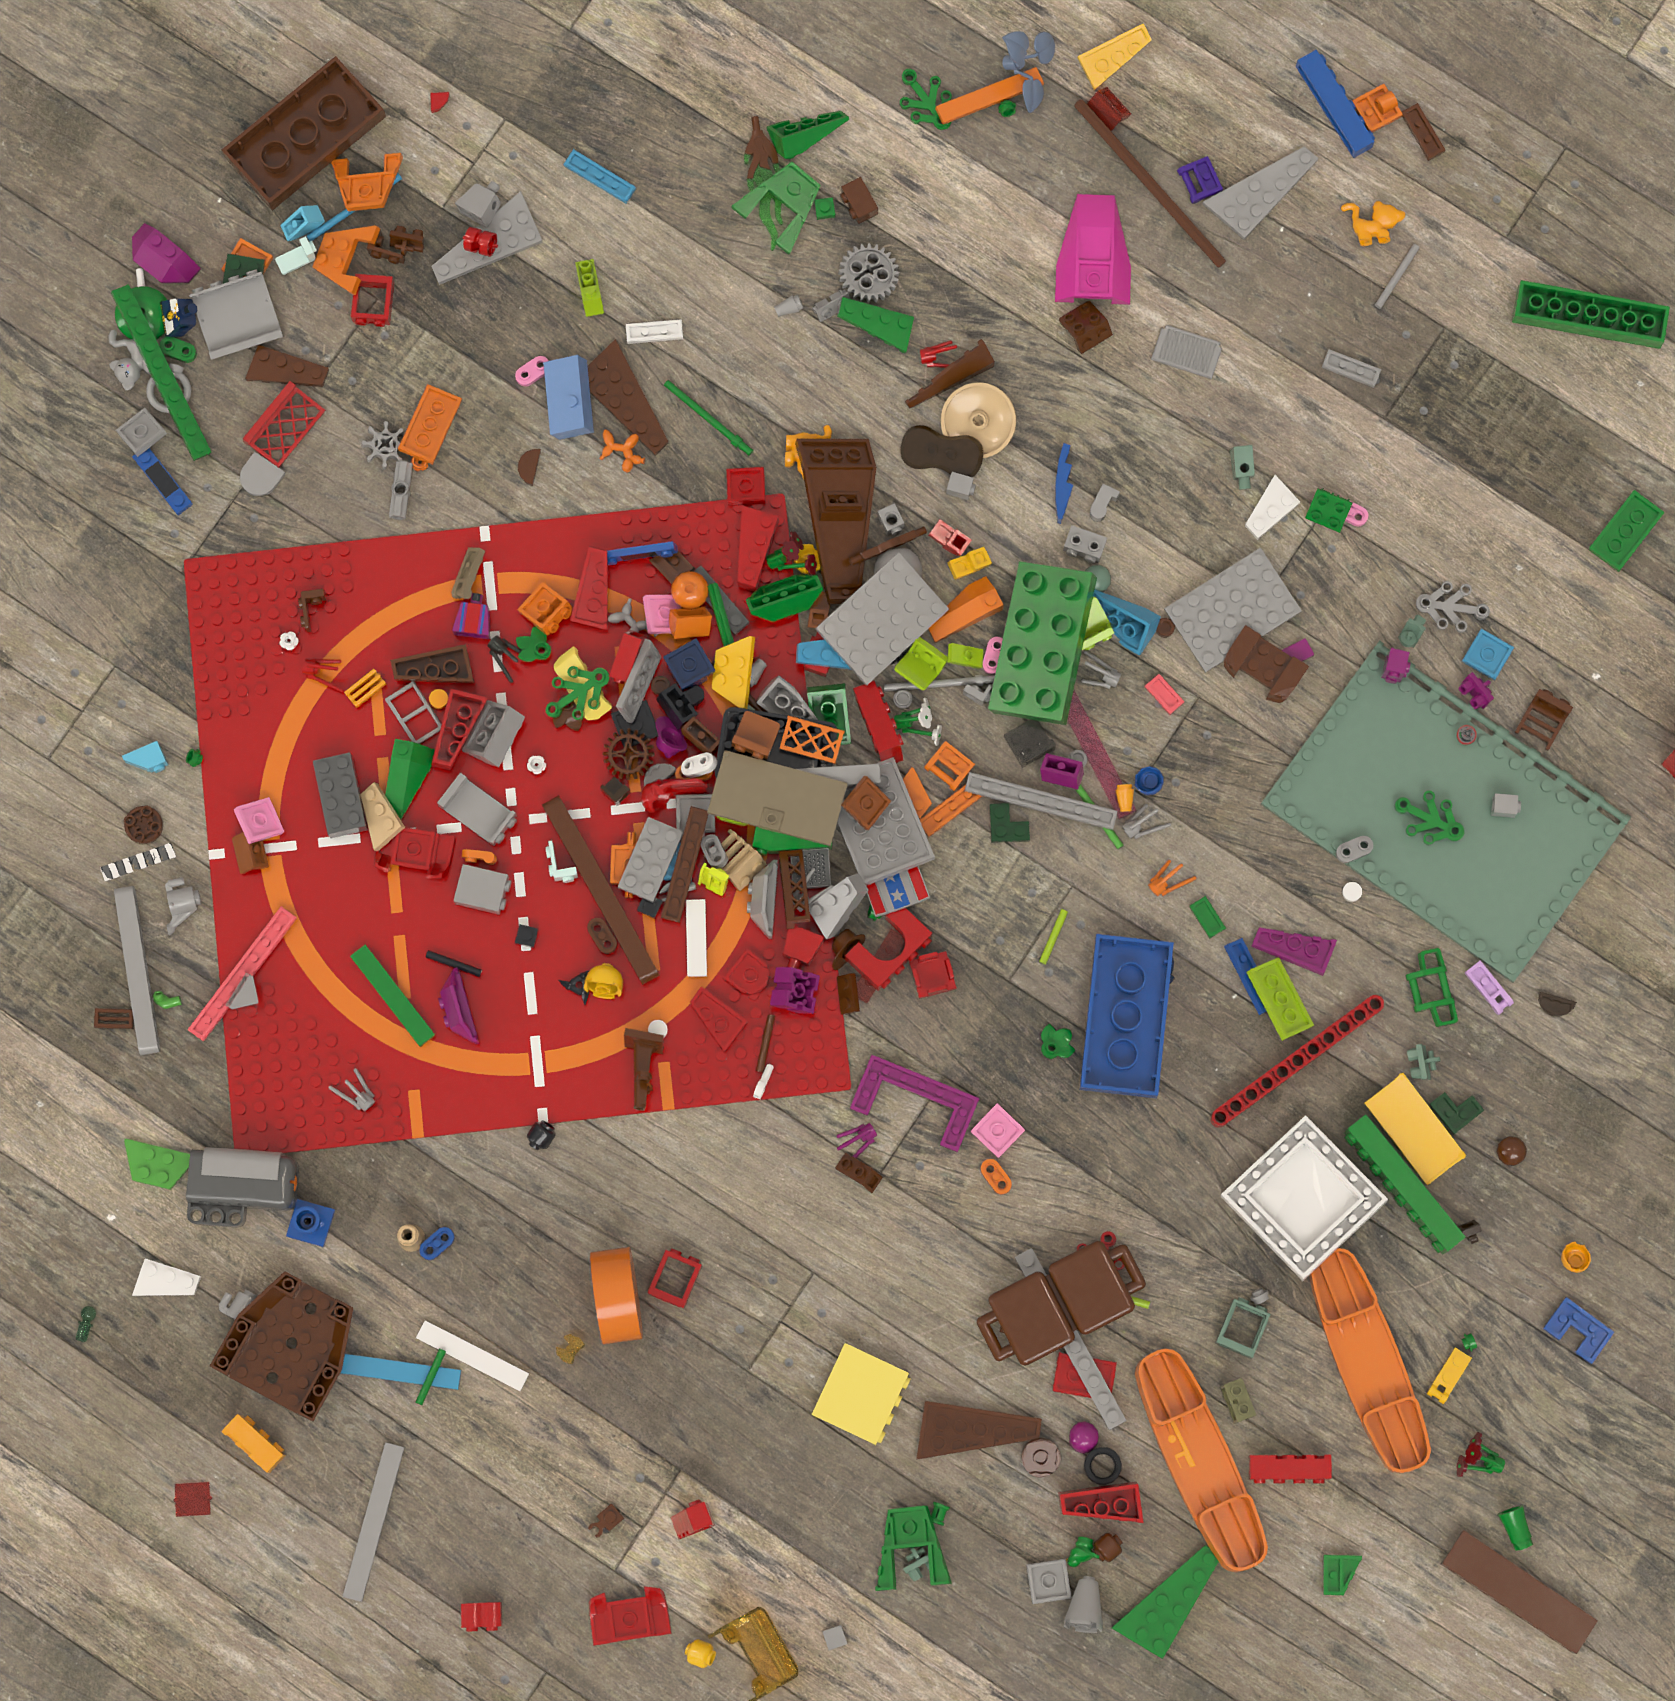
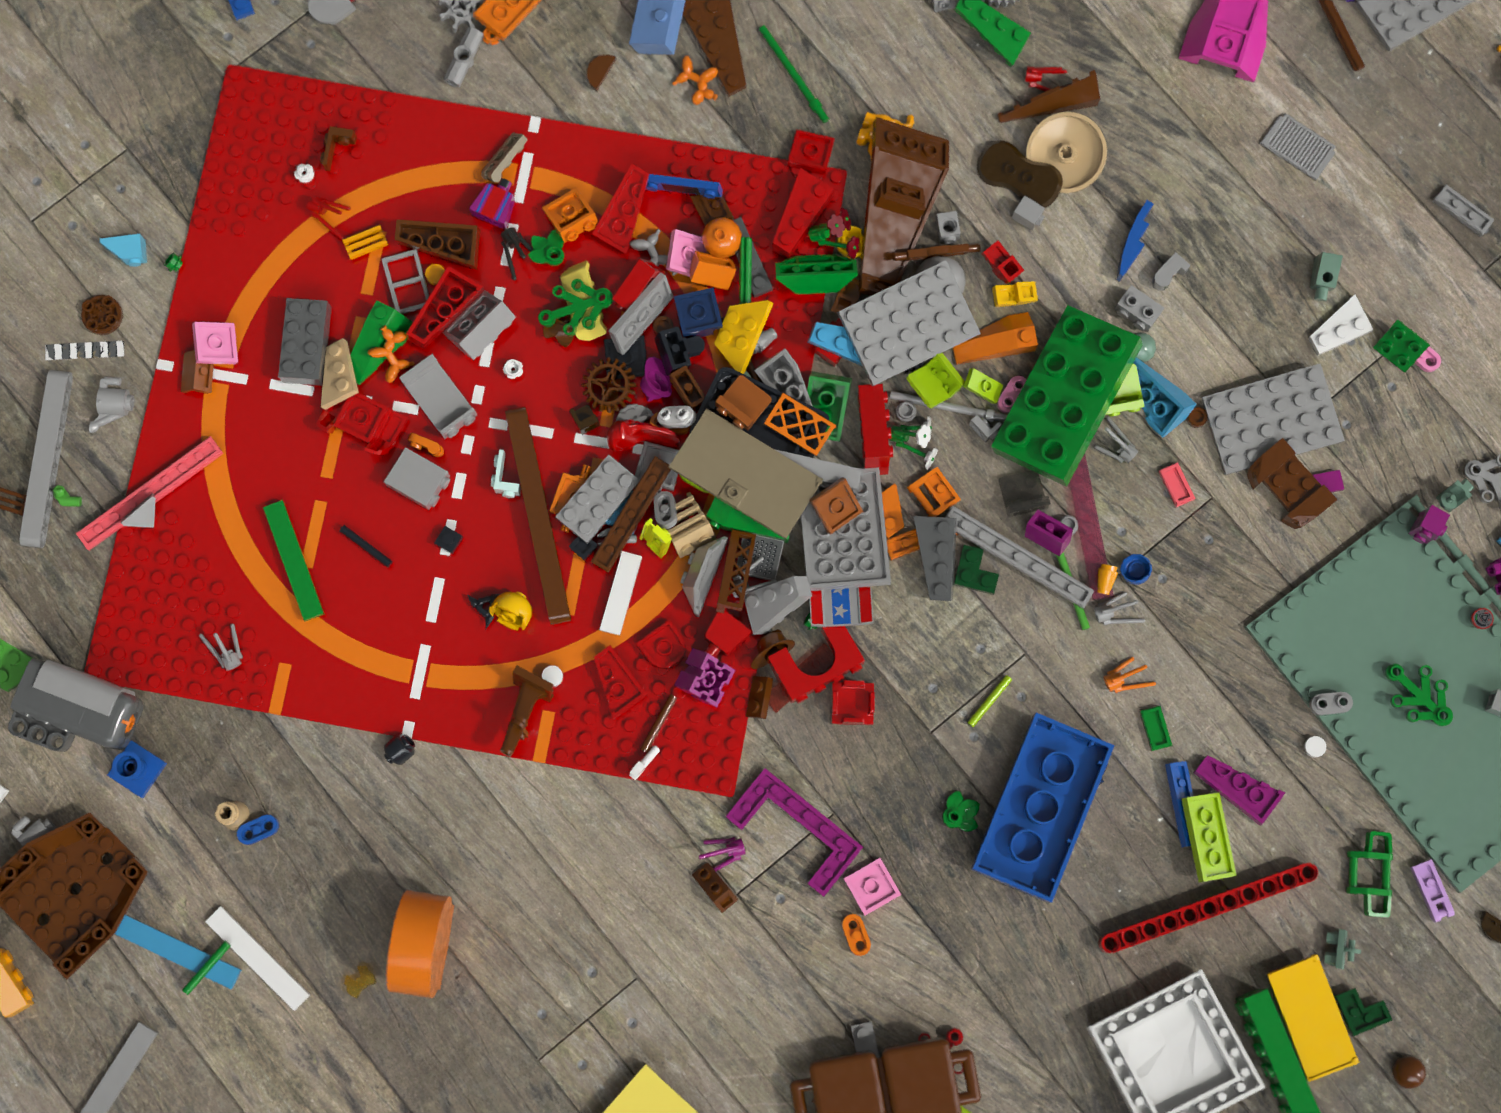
camera: 15 degrees right, 0 degrees up
(429, 792) = (379, 352): none -> orange piece
(457, 1008) = (354, 592): magenta wedge -> none
(602, 936) = (525, 563): reddish brown plate -> none
(691, 1261) = (478, 960): red window -> none
(969, 819) = (937, 551): none -> dark grey wedge
(1086, 326) = (1204, 91): reddish brown bracket -> none

